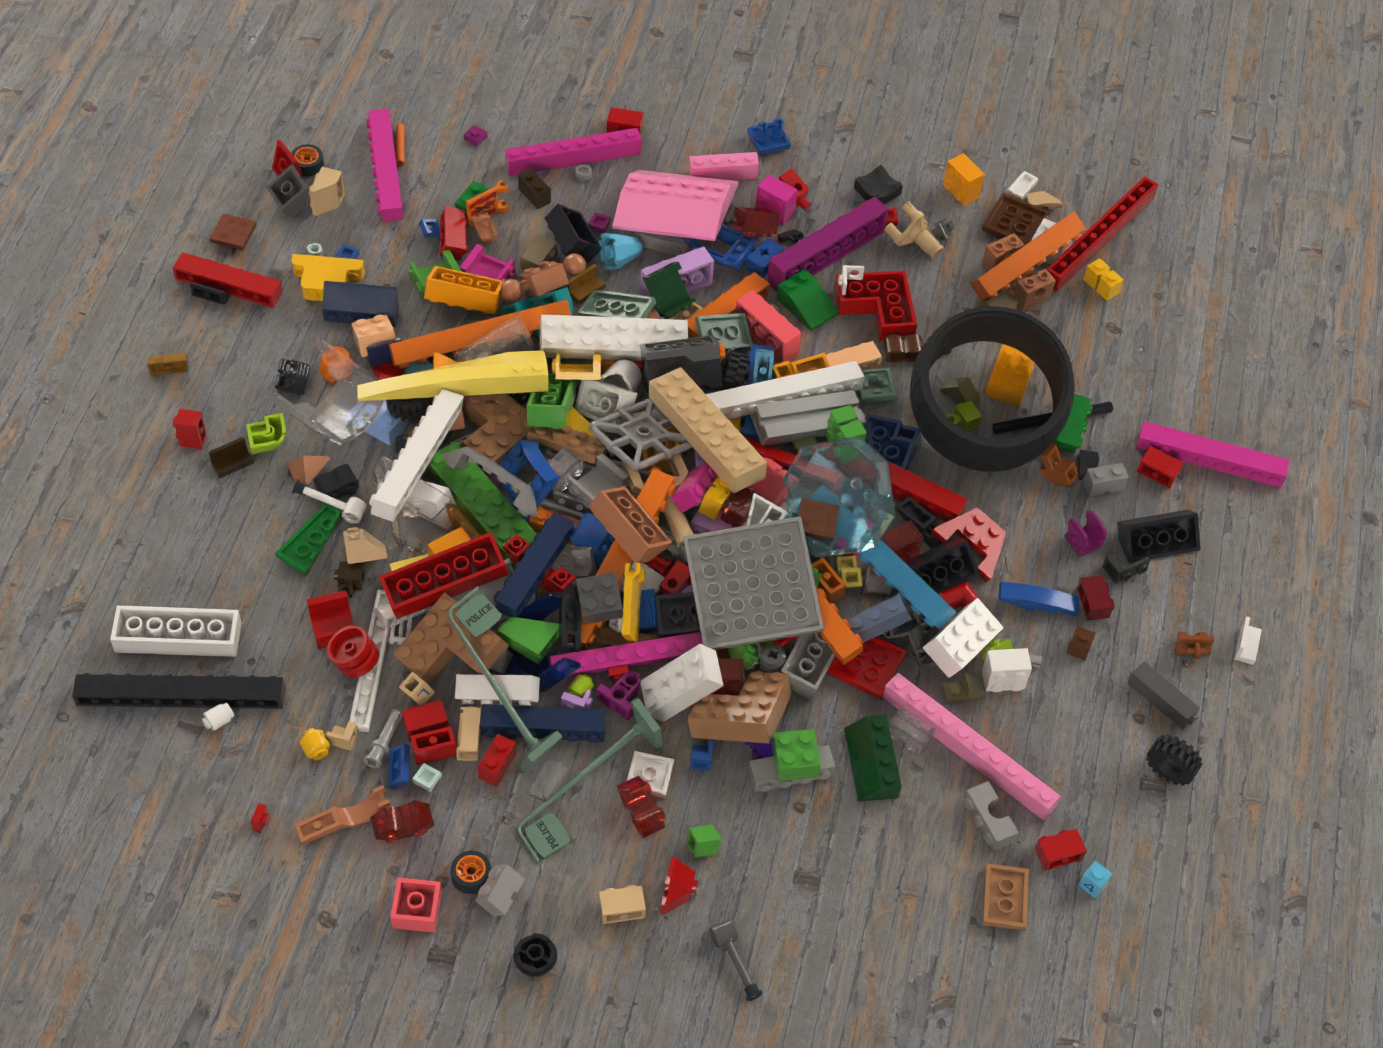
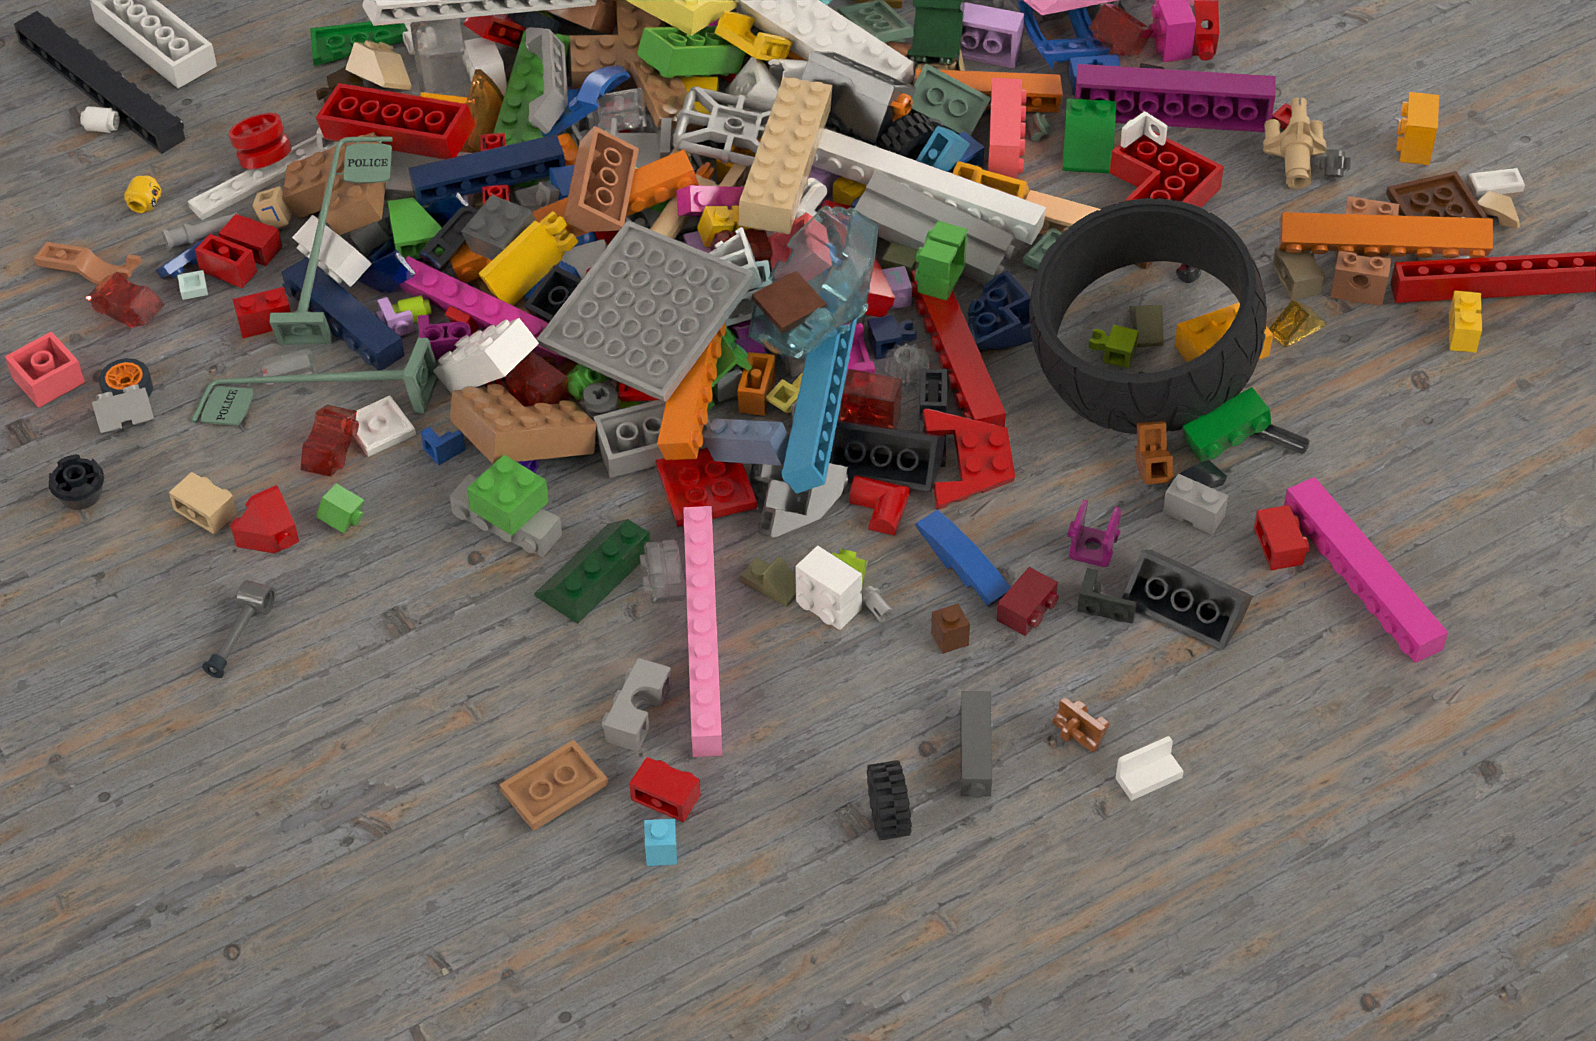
camera: 50 degrees right, 5 degrees down
(260, 818) = (26, 216): red plate -> none
(329, 615) = (295, 105): red panel -> none
(343, 737) = (173, 207): tan panel -> none
(469, 734) = (268, 274): tan window -> none
(878, 185) = (1313, 82): black brick -> none
(963, 637) = (803, 519): white brick -> none

